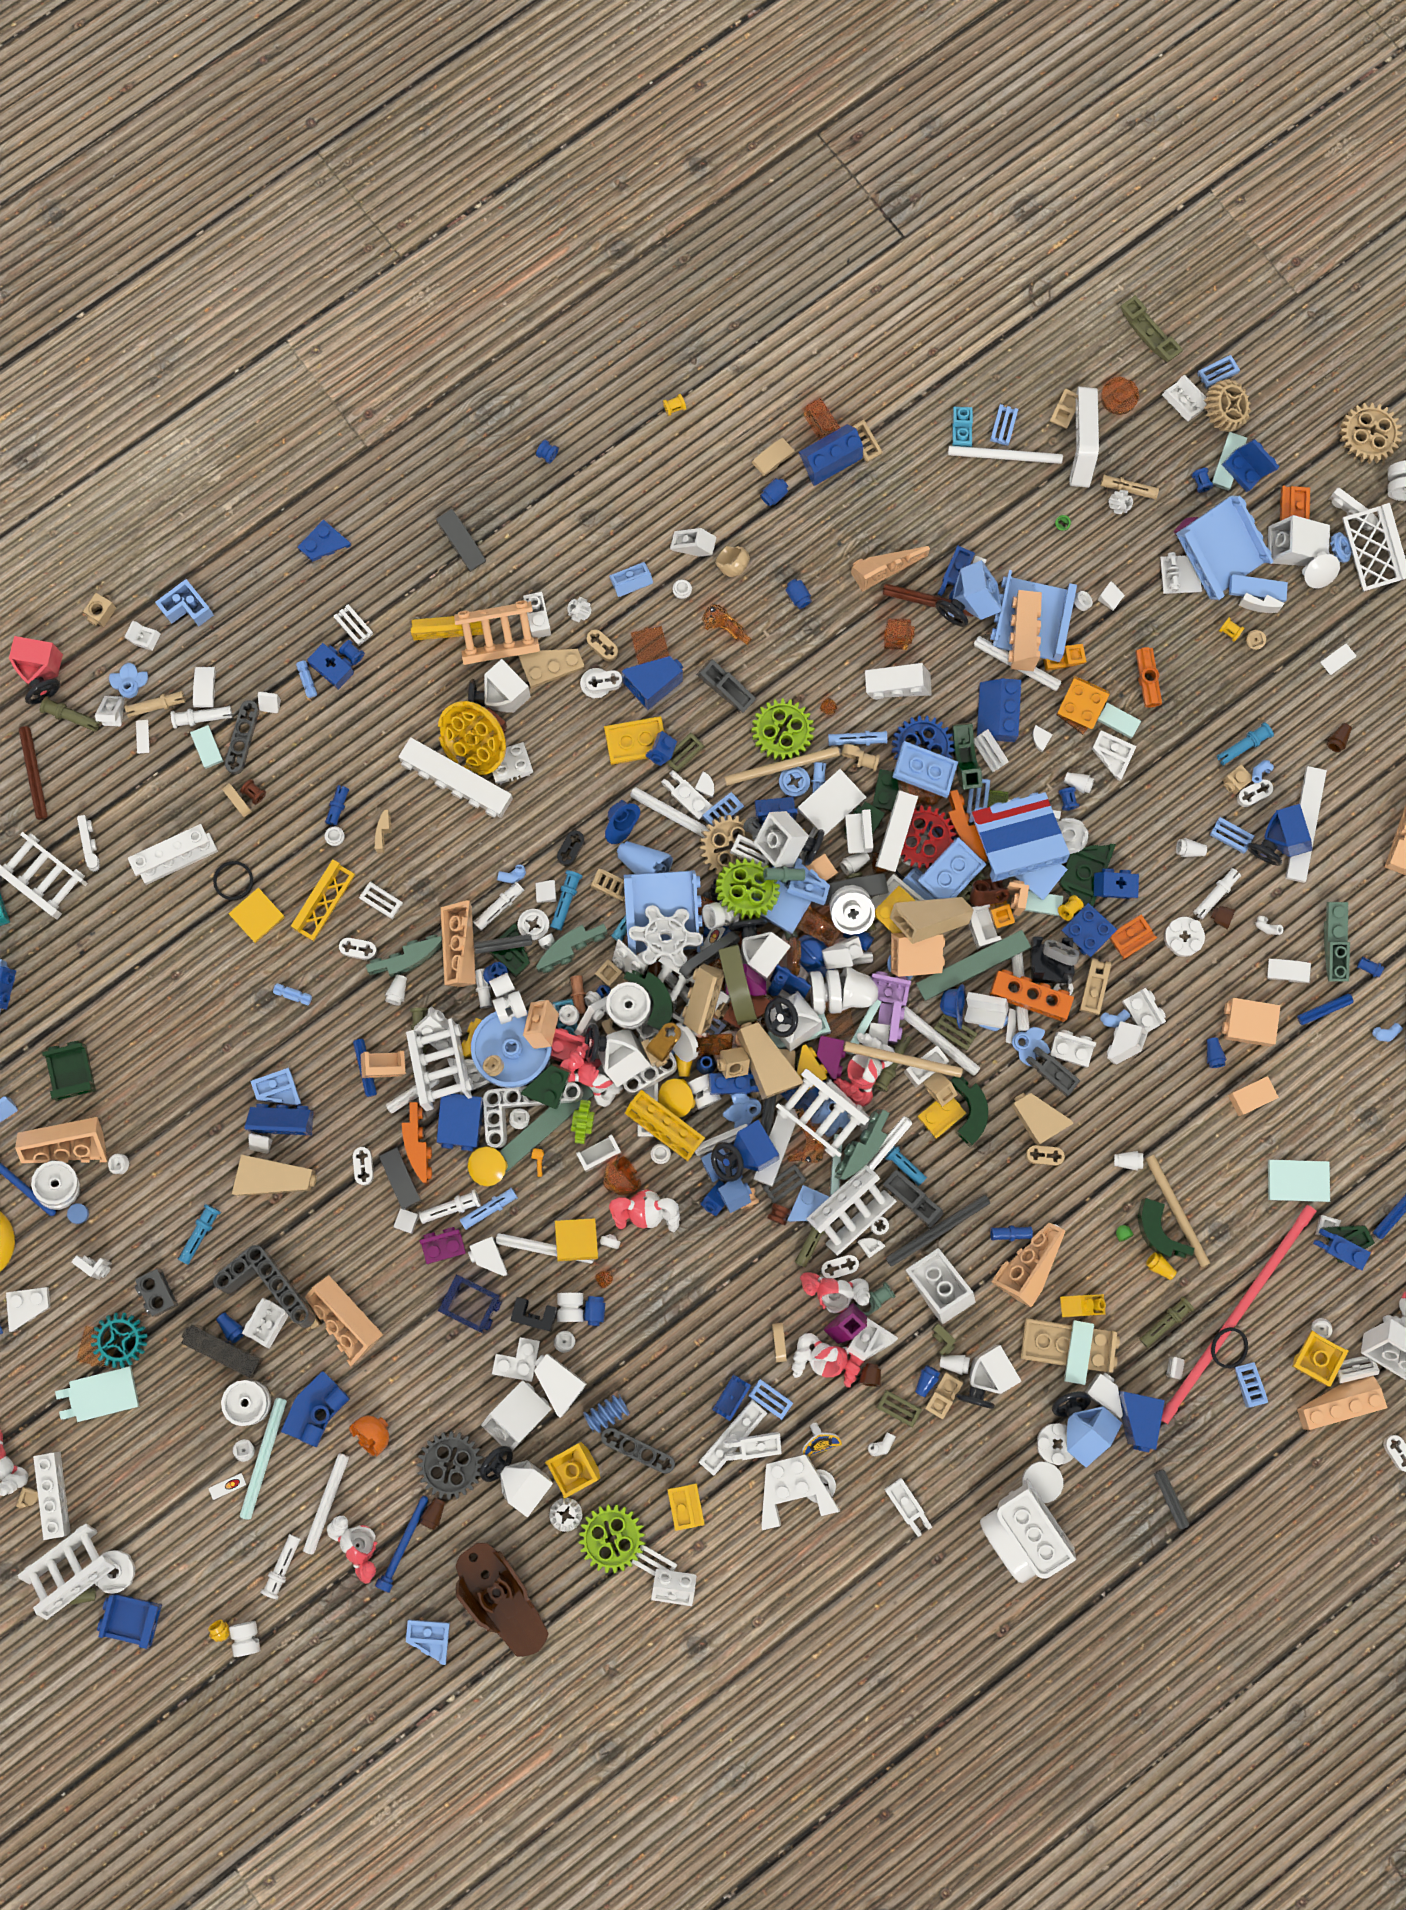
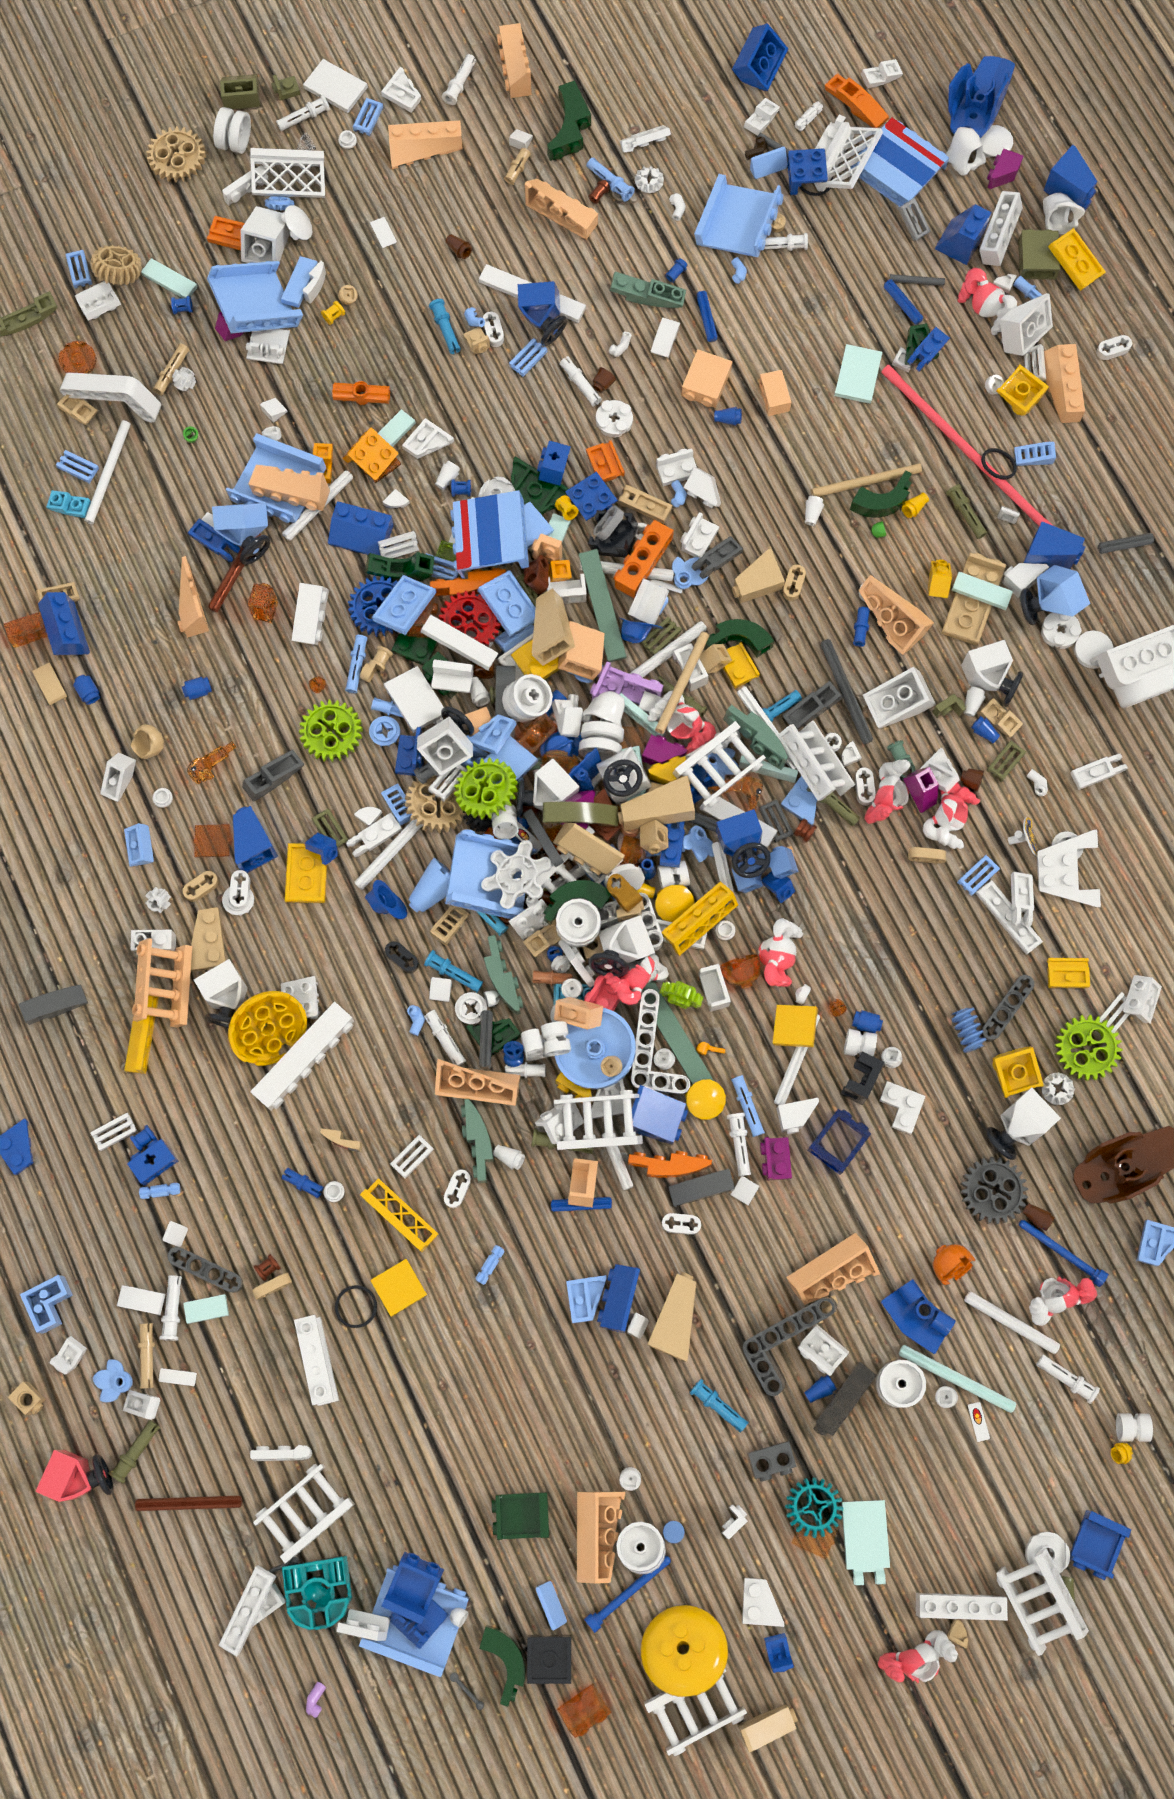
camera: 75 degrees left, 5 degrees down
(516, 1415) = (957, 1116): white slope -> none
(548, 1086) = (642, 1017): dark green wing -> none
(558, 1383) = (934, 1067): white slope -> none
(731, 1397) = (972, 909): blue hinge -> none
(782, 765) = (367, 738): tan piece -> none
(784, 874) = (480, 750): sand green pin -> none
(1190, 848) = (532, 395): white cone -> none
(1249, 464) = (178, 259): blue bracket -> none

